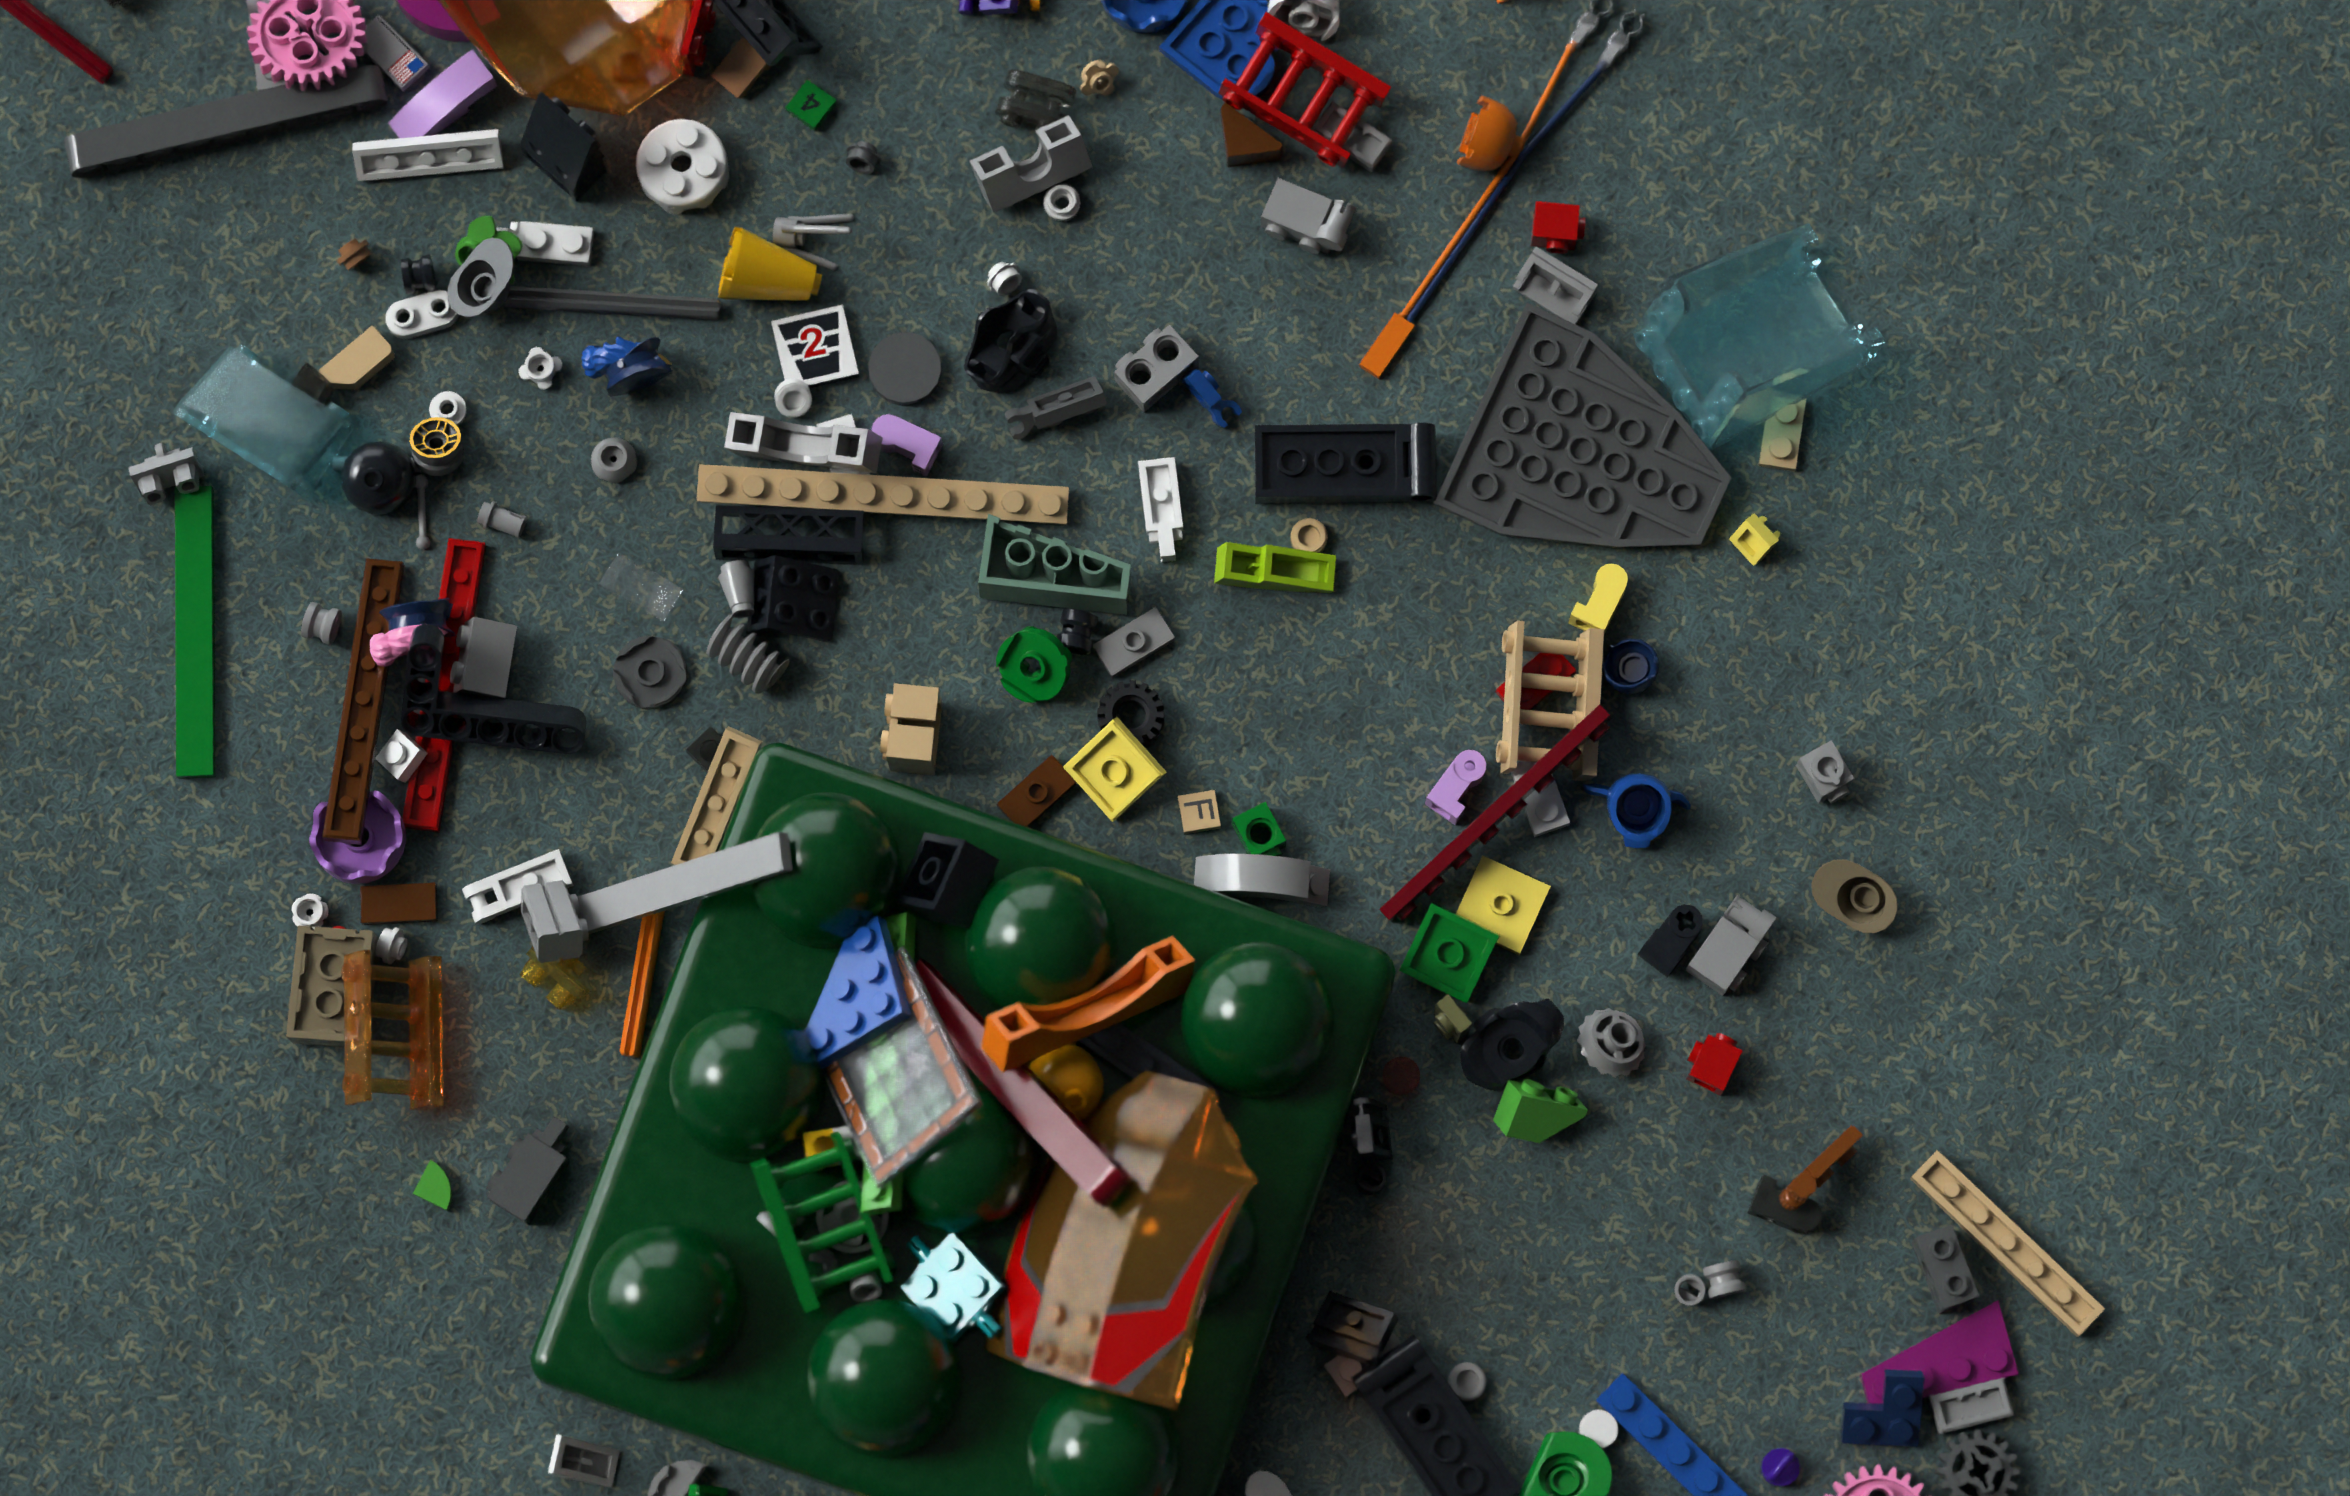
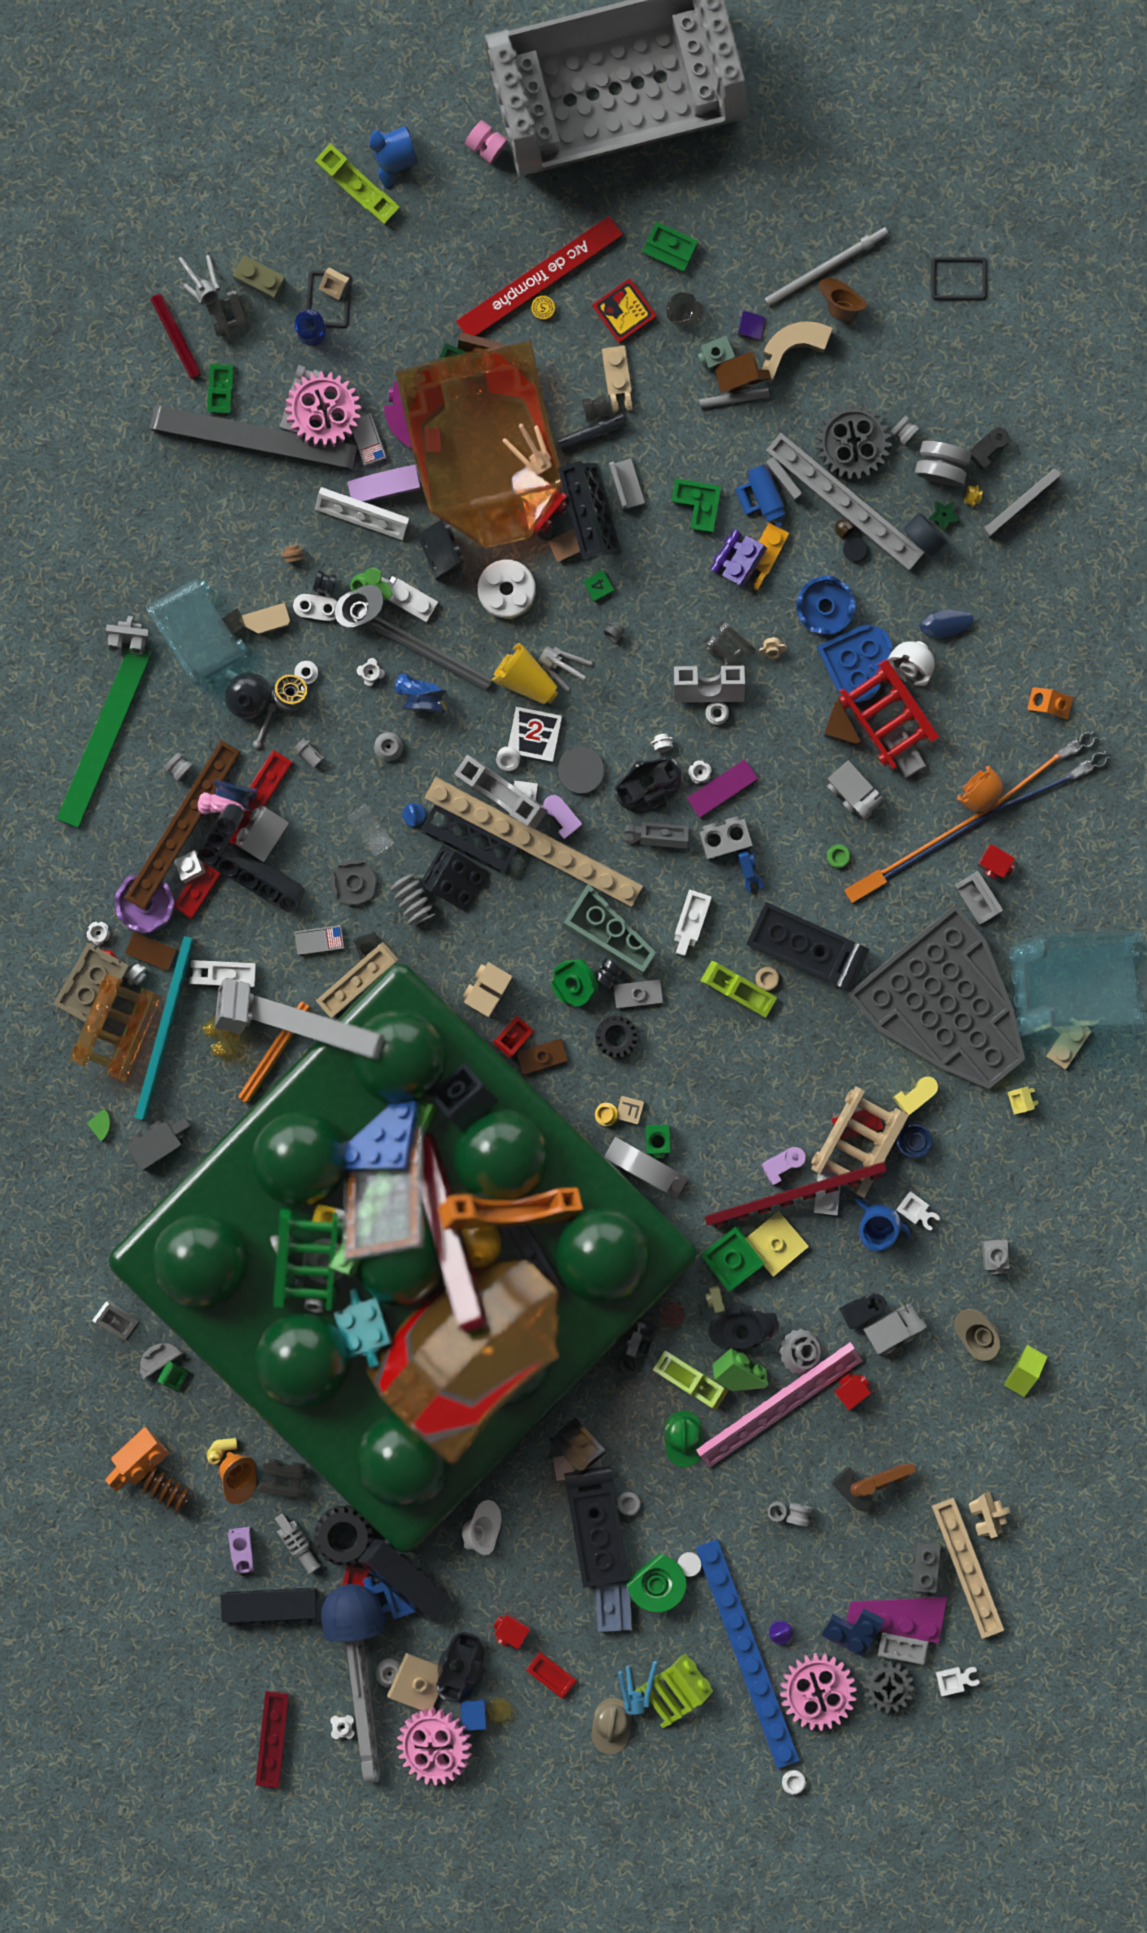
camera: 15 degrees right, 10 degrees up
(148, 75) = (220, 388): none -> green slope
(467, 1003) = (164, 1028): none -> teal tile
(637, 776) = (319, 940): none -> light grey tile
(693, 538) = (413, 814): none -> blue tile
(738, 586) = (426, 856): light grey cone -> none
(981, 783) = (513, 1036): none -> red slope
(1072, 285) = (693, 772): none -> white plate
(1114, 769) = (592, 1065): light yellow plate -> none
(1118, 303) = (721, 788): none -> magenta tile
(1168, 832) = (606, 1114): none -> yellow plate
(1328, 321) = (838, 856): none -> bright green tile
(1472, 1157) = (690, 1380): none -> lime slope
(1502, 1250) = (683, 1438): none -> green piece
(1618, 1134) = (779, 1405): none -> bright pink plate
(1677, 762) = (914, 1209): none -> white plate
(1950, 921) = (1026, 1371): none -> lime slope
(1988, 1139) = (993, 1515): none -> tan hips
(2066, 1419) = (952, 1681): none -> white plate

